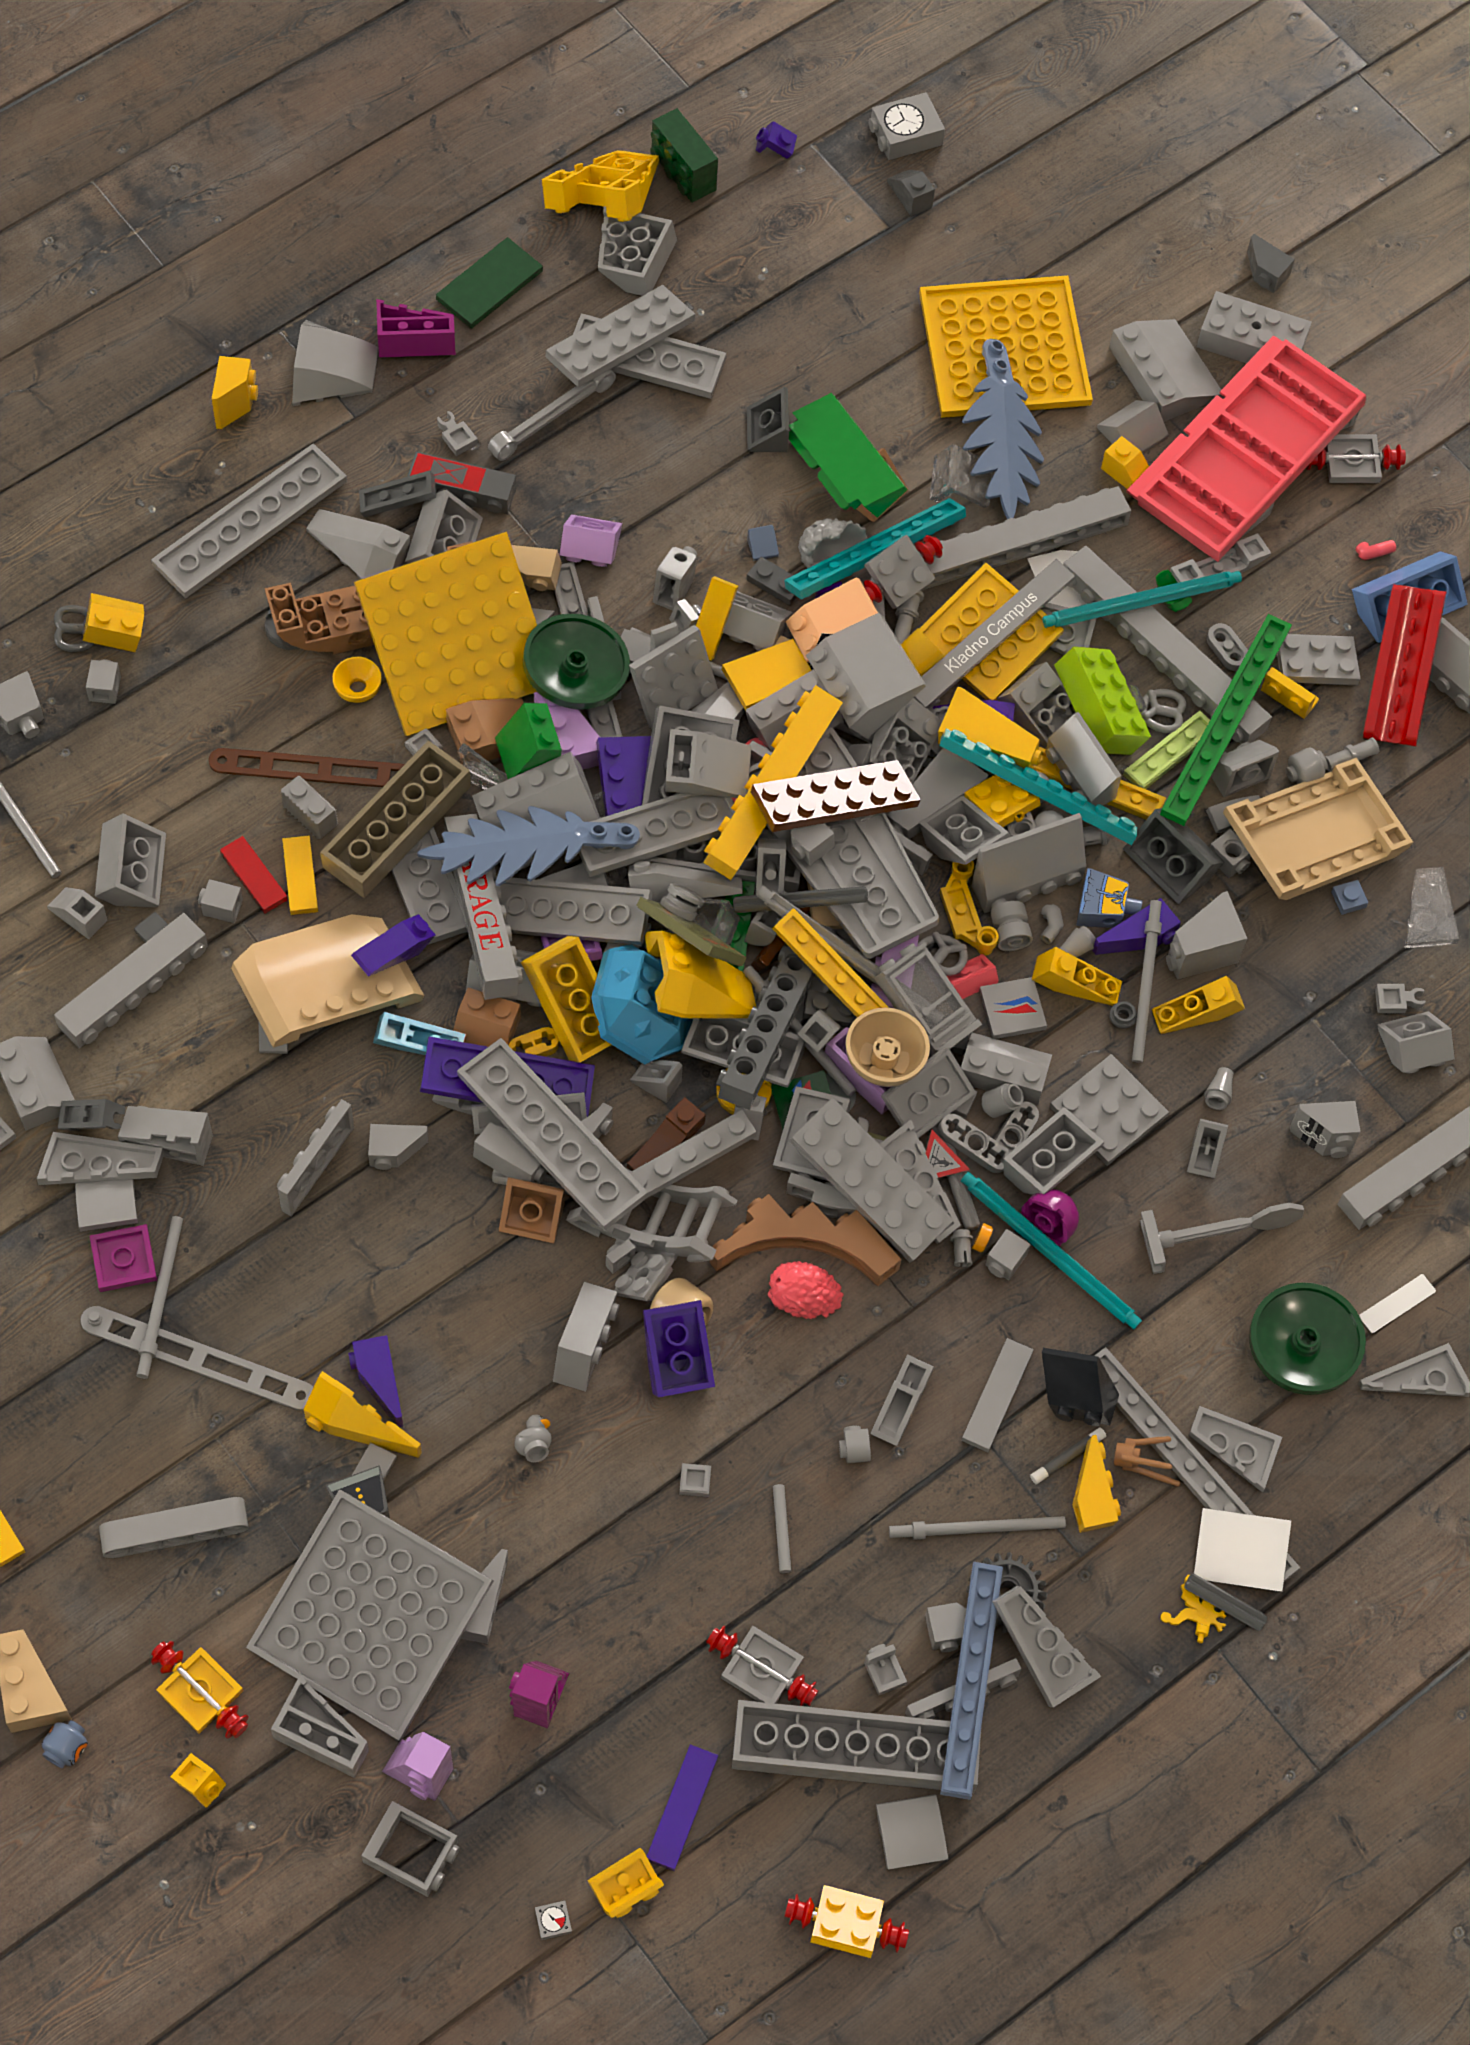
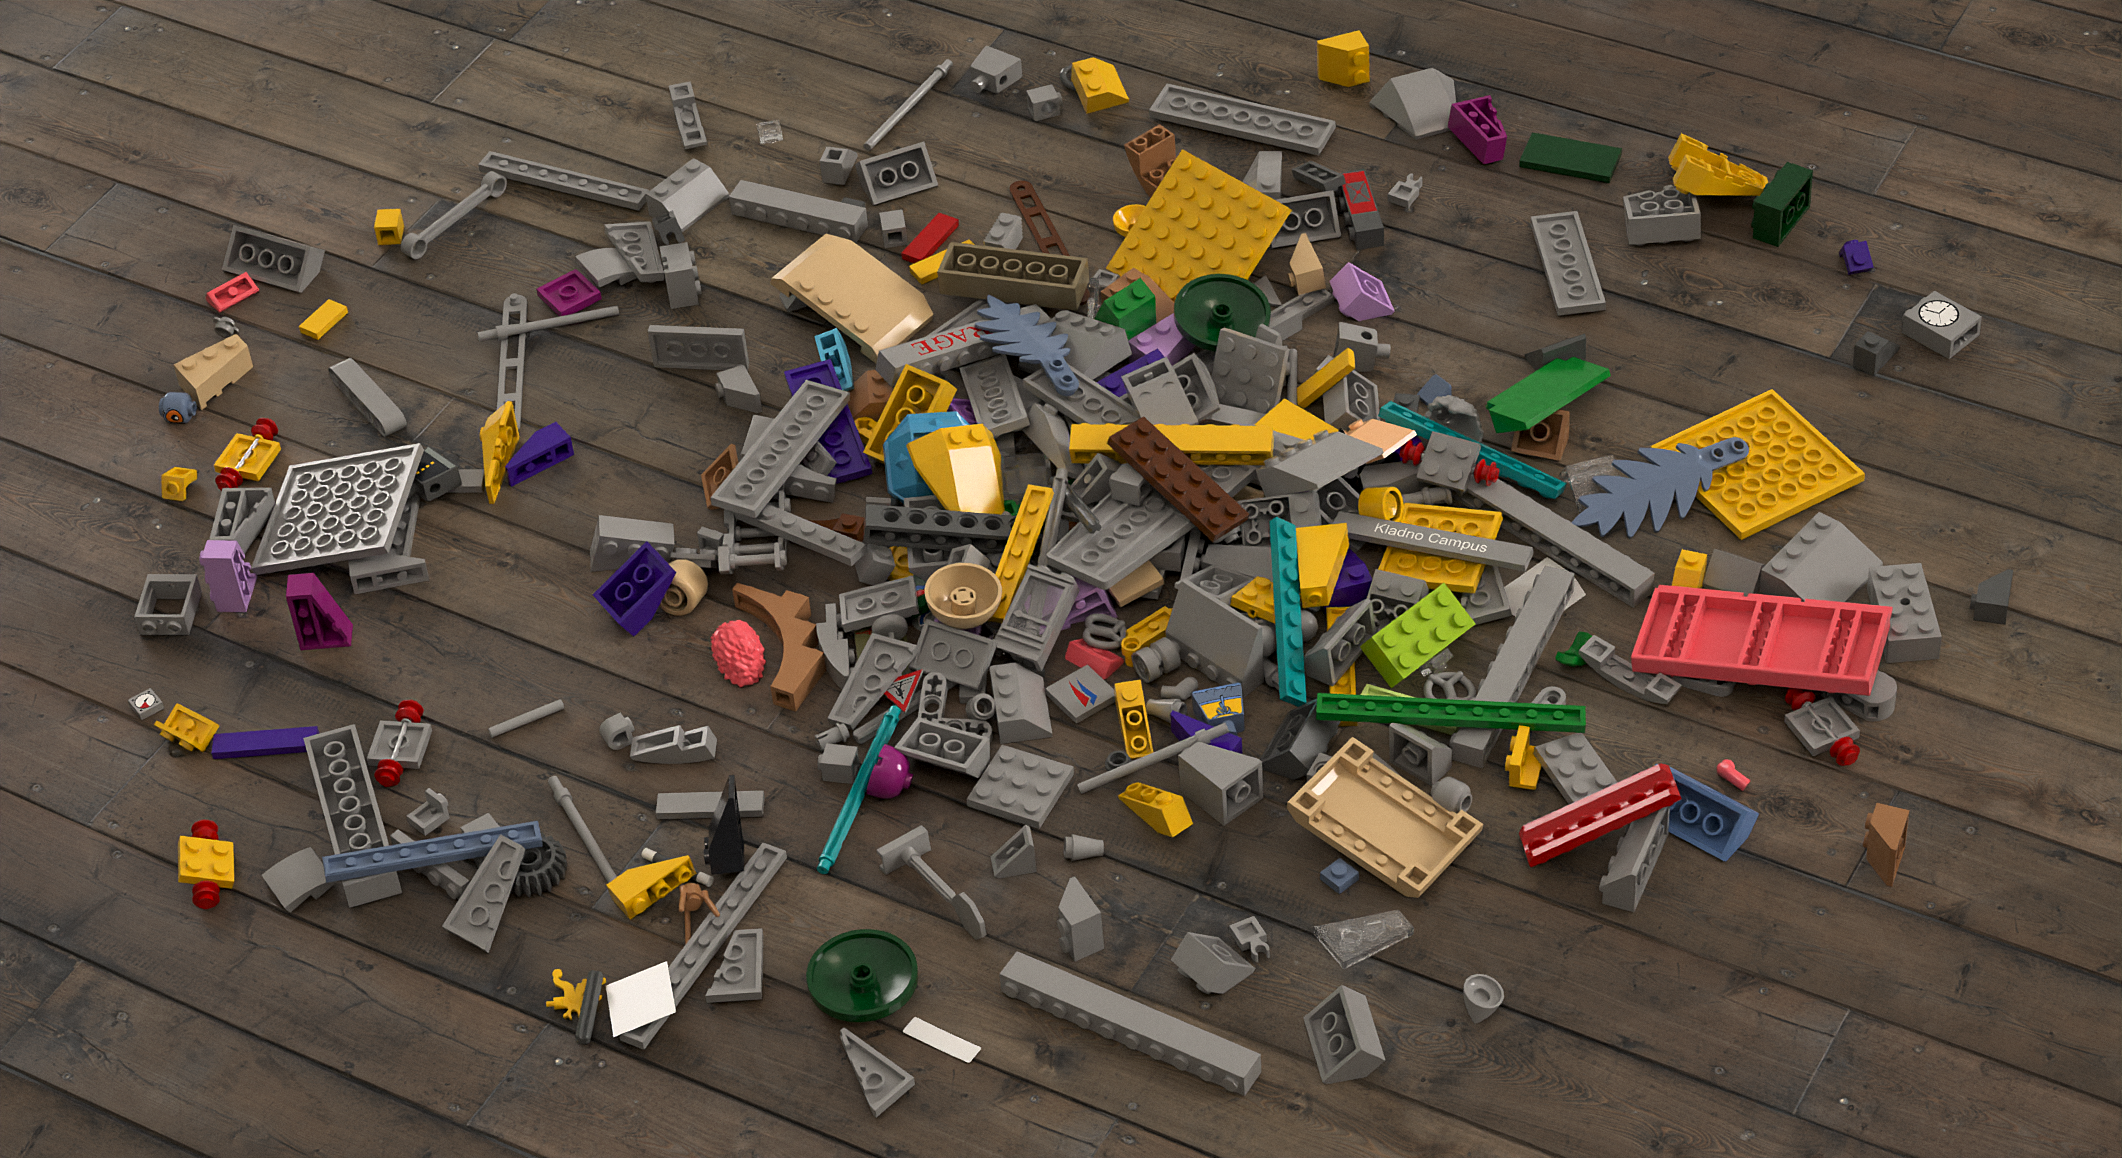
camera: 75 degrees right, 20 degrees down
(394, 946) = (897, 313): dark purple slope -> none
(505, 443) = (1468, 231): light grey piece -> none
(534, 1440) = (528, 551): light grey animal -> none
(620, 335) = (1569, 235): light grey plate -> none
(682, 902) = (1029, 439): light grey wheel -> none
(692, 933) = (997, 445): olive tile -> none
(695, 1480) = (544, 655): light grey tile -> none
(871, 1180) = (843, 638): light grey brick -> none
(982, 1237) = (848, 739): light orange tile -> none
(1142, 599) = (1541, 623): teal piece -> none
(1350, 752) = (1493, 828): light grey pin -> none

